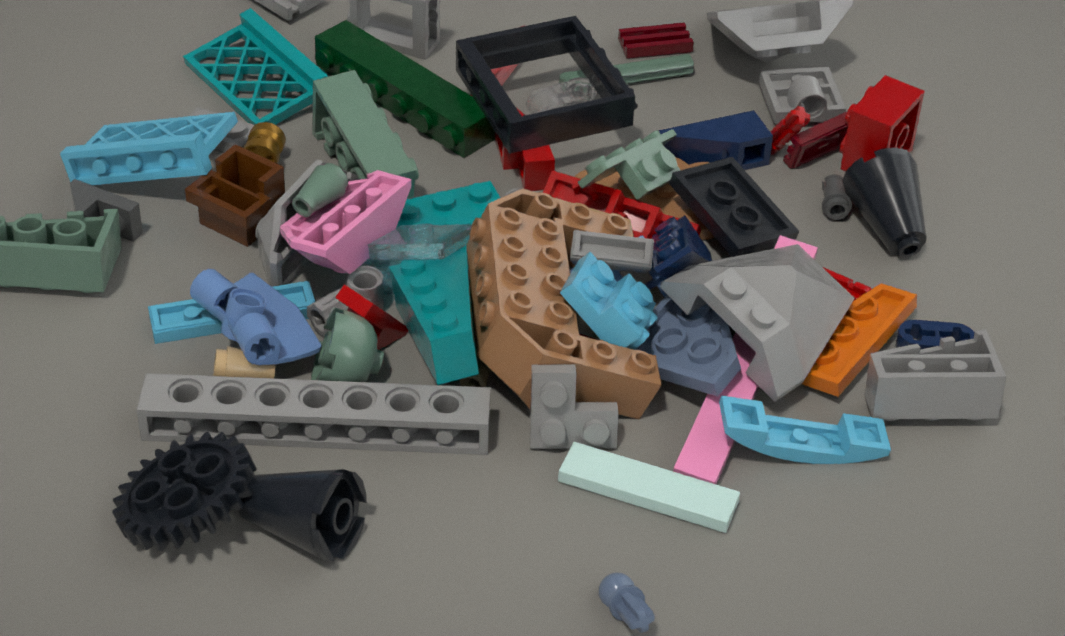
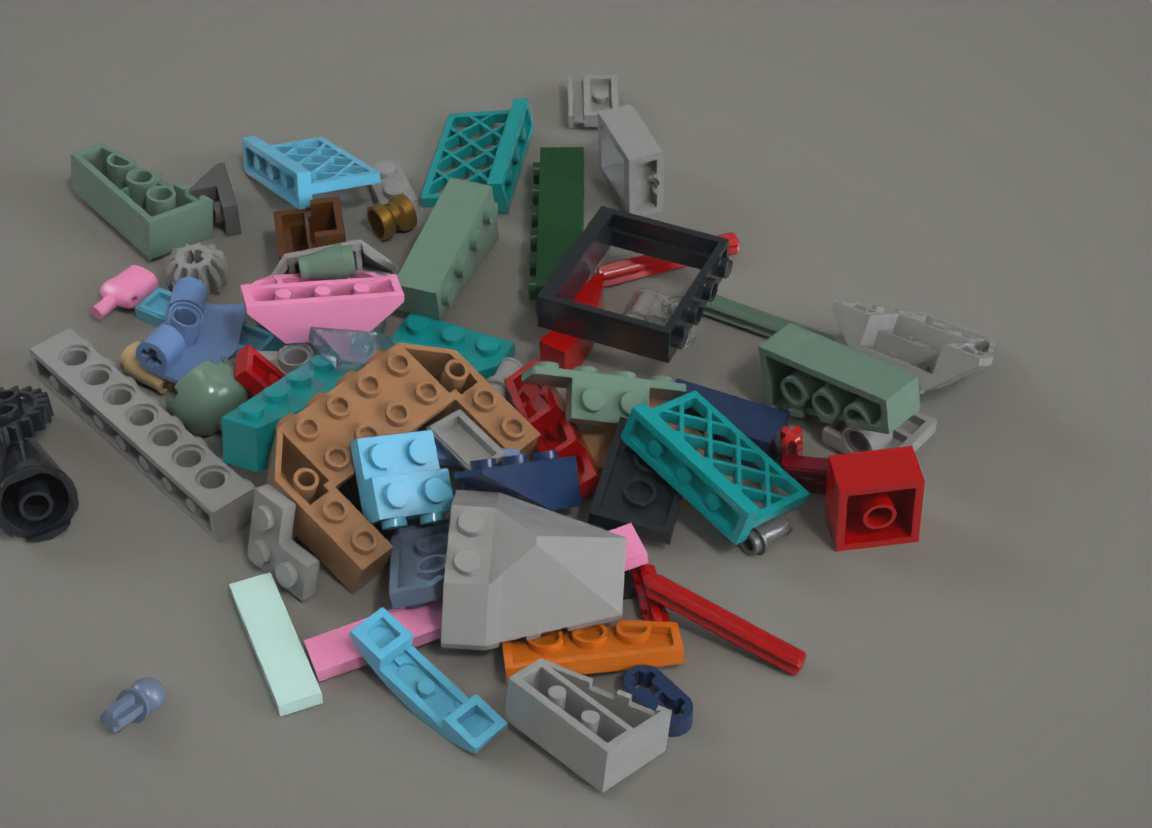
camera: 50 degrees right, 0 degrees up
(125, 324) = (125, 290): none -> bright pink piece
(165, 274) = (197, 262): none -> light grey gear
(655, 40) = (818, 303): dark red tile -> none
(769, 170) = (702, 477): none -> teal fence
(770, 69) = (835, 382): none -> sand green wedge
(889, 199) = (788, 561): black cone -> none
(907, 264) = (725, 624): none -> red axle

